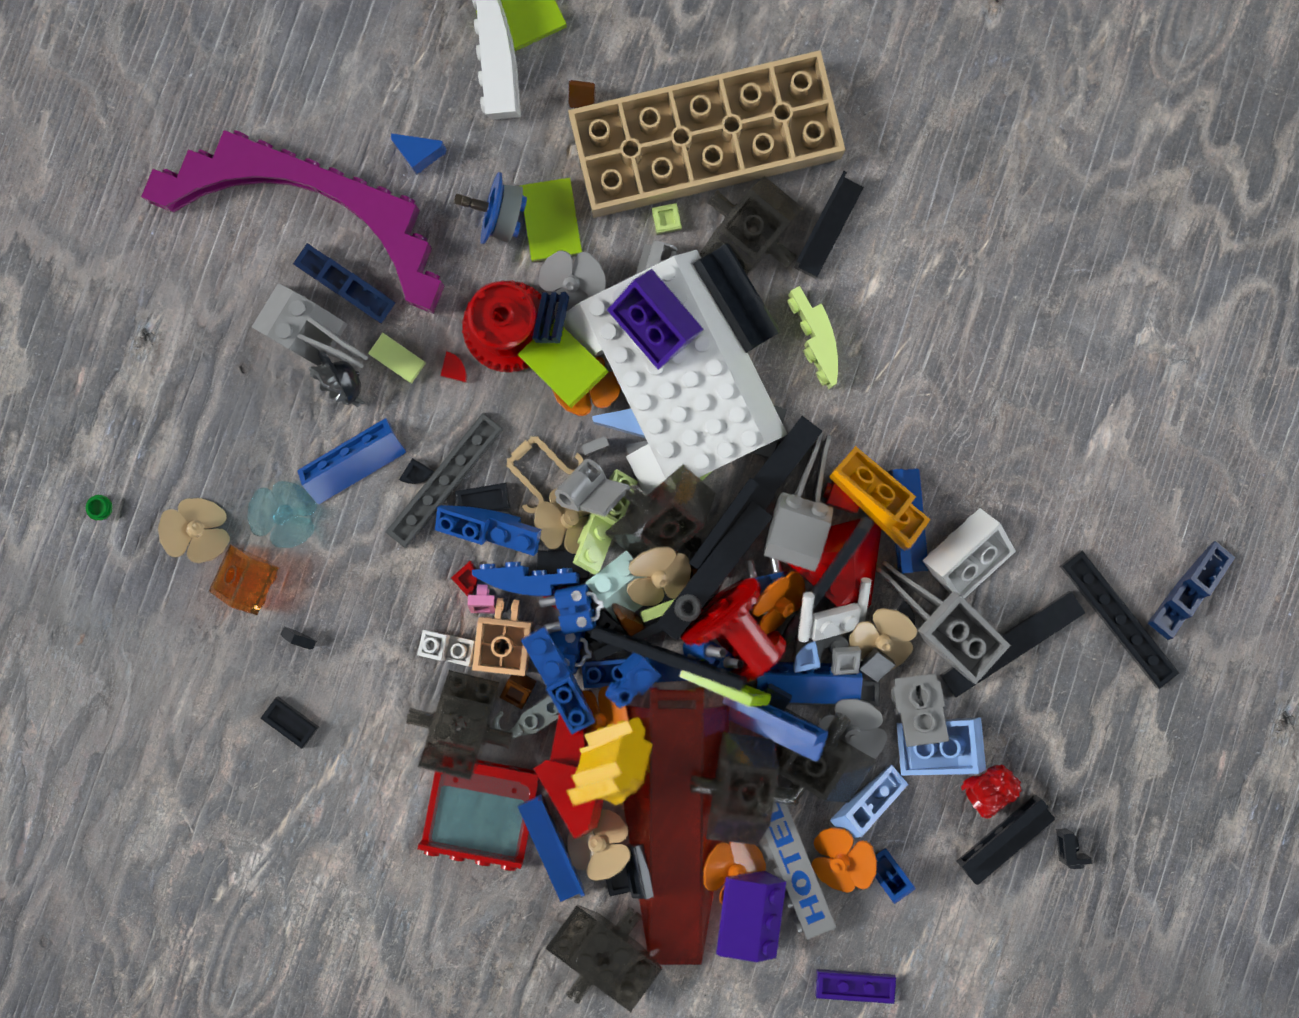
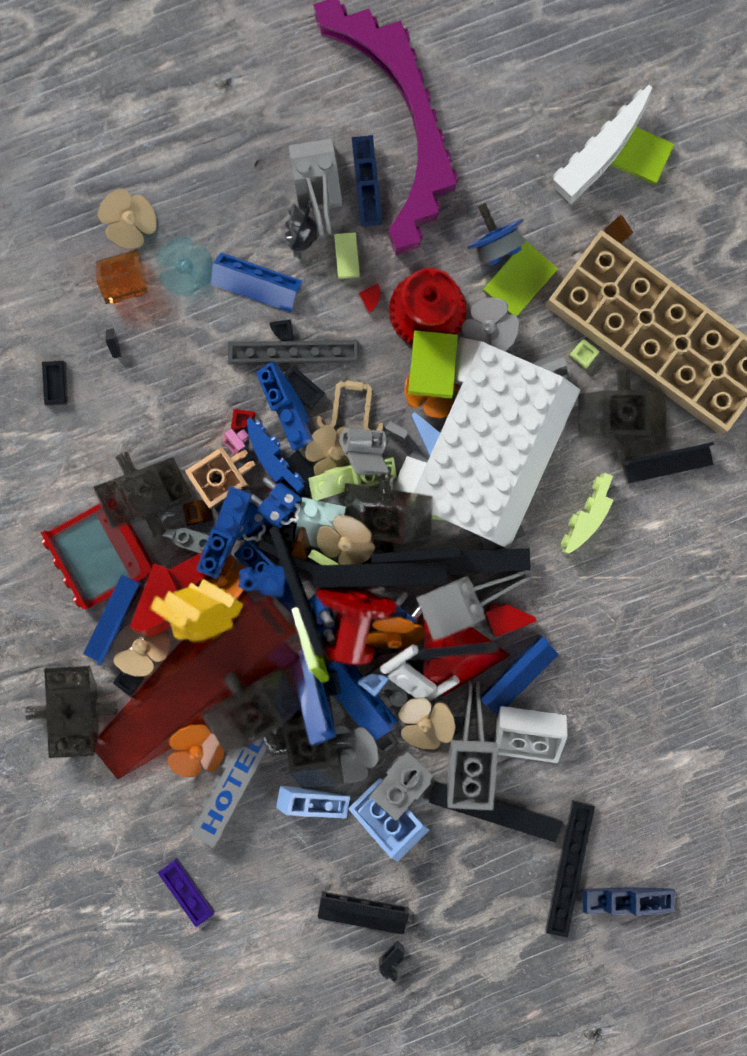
camera: 50 degrees right, 0 degrees up
(99, 507) = (91, 146): green plate -> none
(418, 151) = (492, 157): blue slope -> none
(446, 648) = (186, 443): white slope -> none
(546, 317) = (453, 329): dark blue tile -> none
(638, 873) = (142, 689): black tile -> none
(654, 318) = (511, 398): dark purple slope -> none
(696, 605) = (348, 577): dark grey plate -> none
(736, 297) = (570, 441): black panel -> none
(751, 917) = (174, 786): dark purple slope -> none
(845, 660) = (392, 709): light grey tile -> none
(846, 867) = (260, 823): orange piece -> none
(876, 664) = (407, 732): tile -> none
(880, 497) = (518, 643): light orange slope -> none
(892, 877) = (276, 855): blue slope -> none
(992, 790) = (388, 876): red hair -> none

